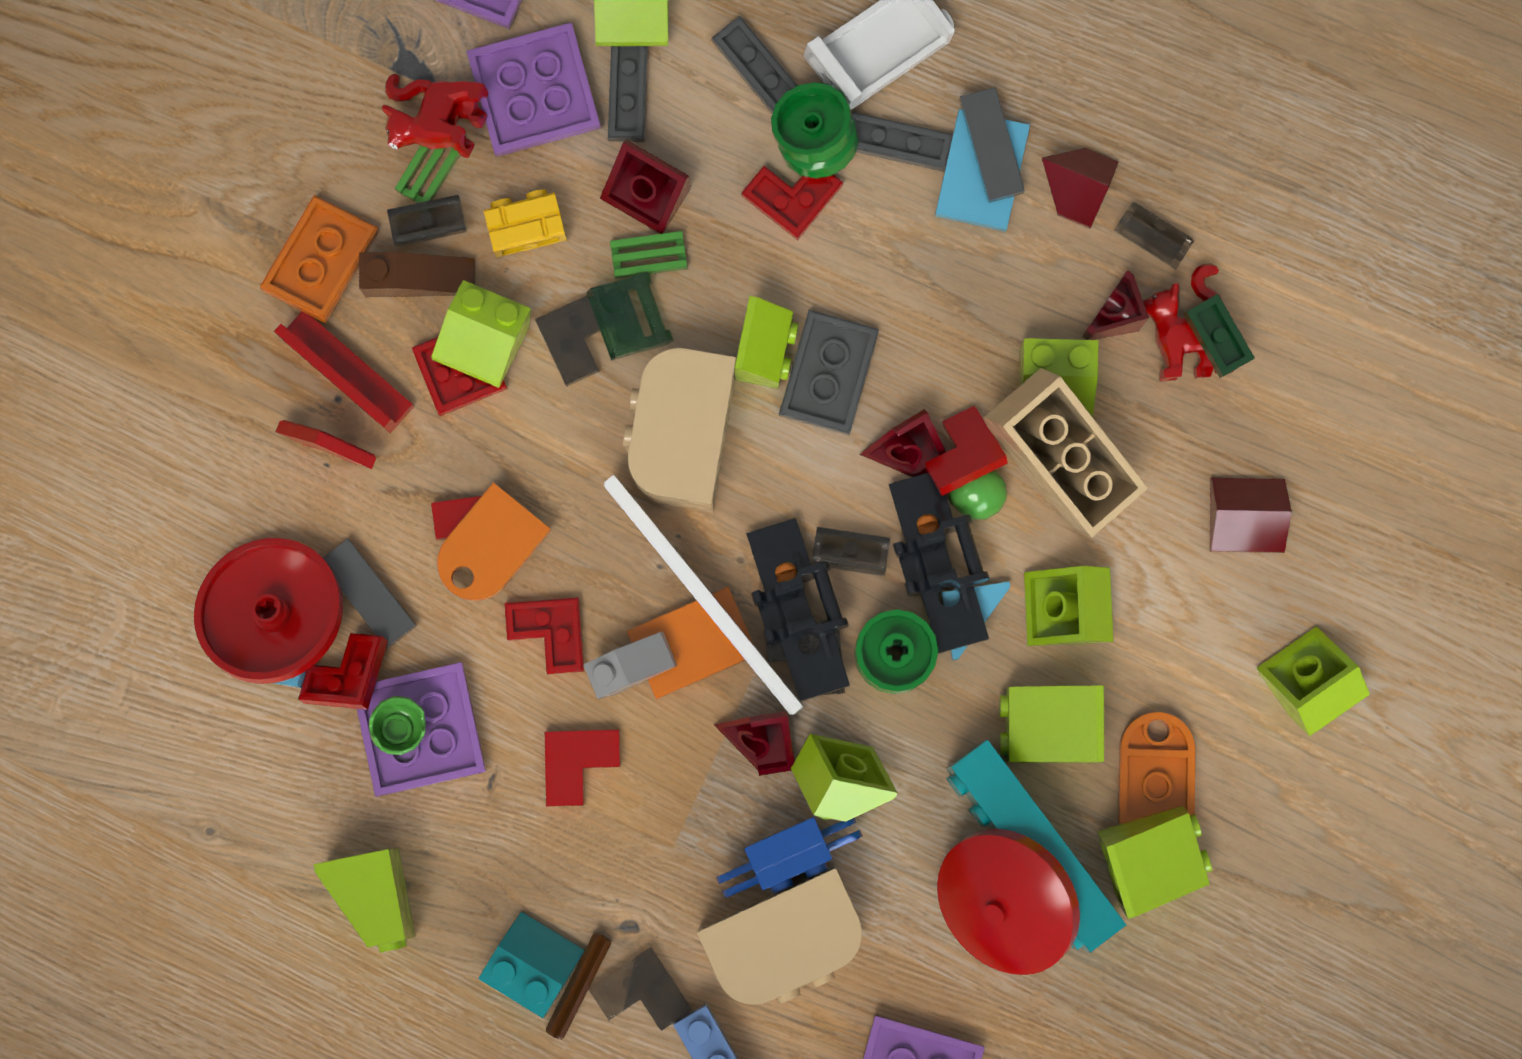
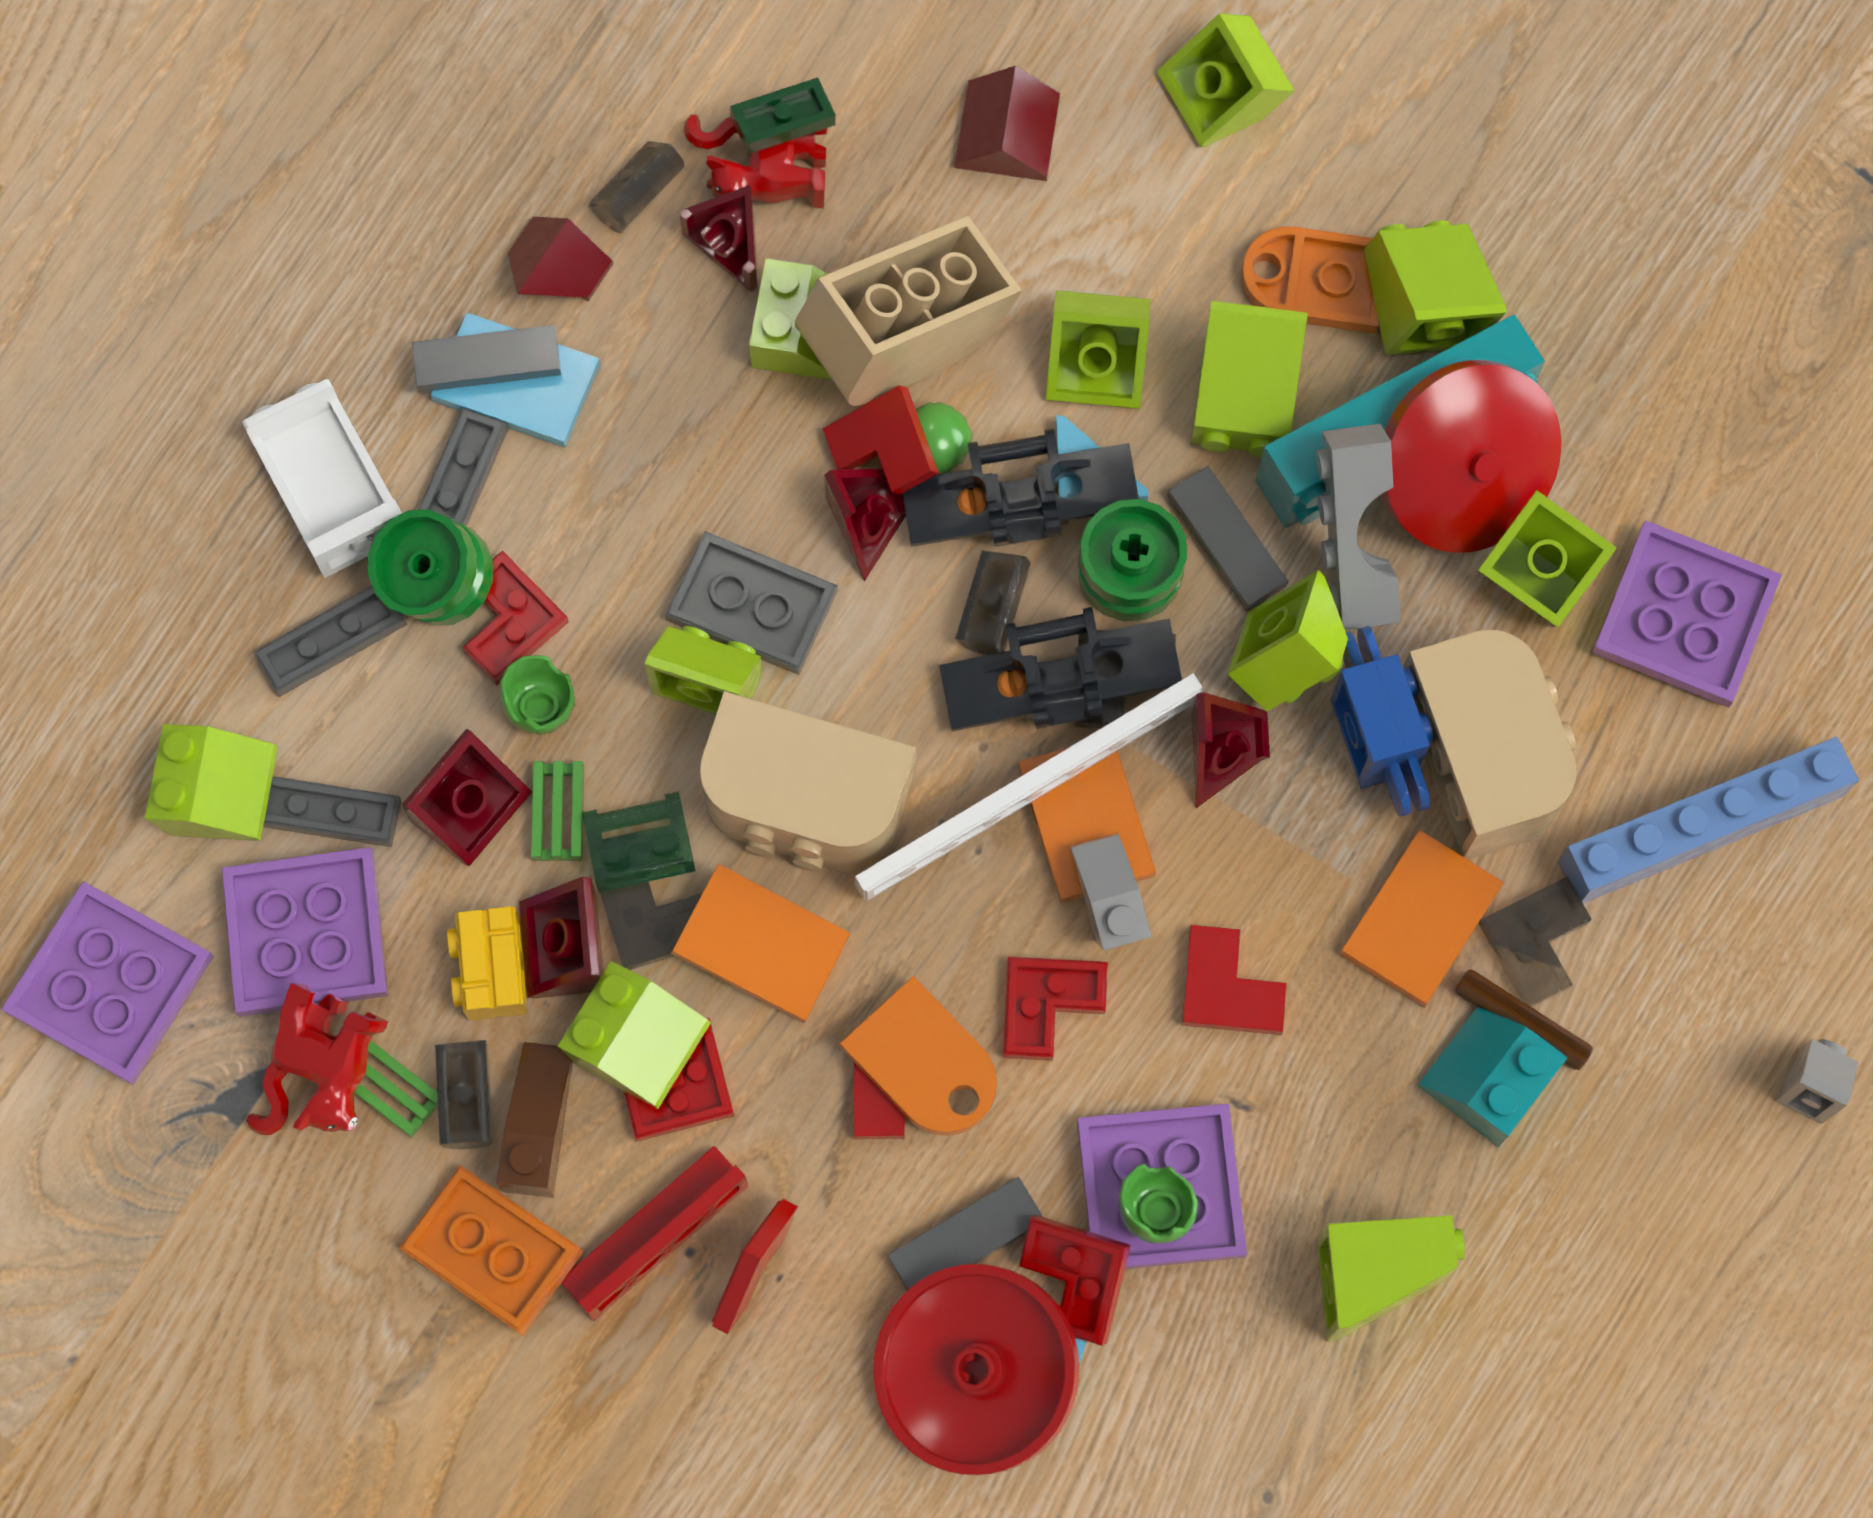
camera: 85 degrees left, 10 degrees down
(548, 274) = (562, 940): none -> dark red slope
(564, 415) = (761, 943): none -> orange tile
(647, 902) = (1421, 918): none -> orange tile
(730, 224) = (536, 695): none -> bright green hair
(929, 724) = (1227, 538): none -> dark grey tile
(932, 969) = (1547, 559): none -> lime slope
(967, 813) = (1356, 472): none -> light grey arch

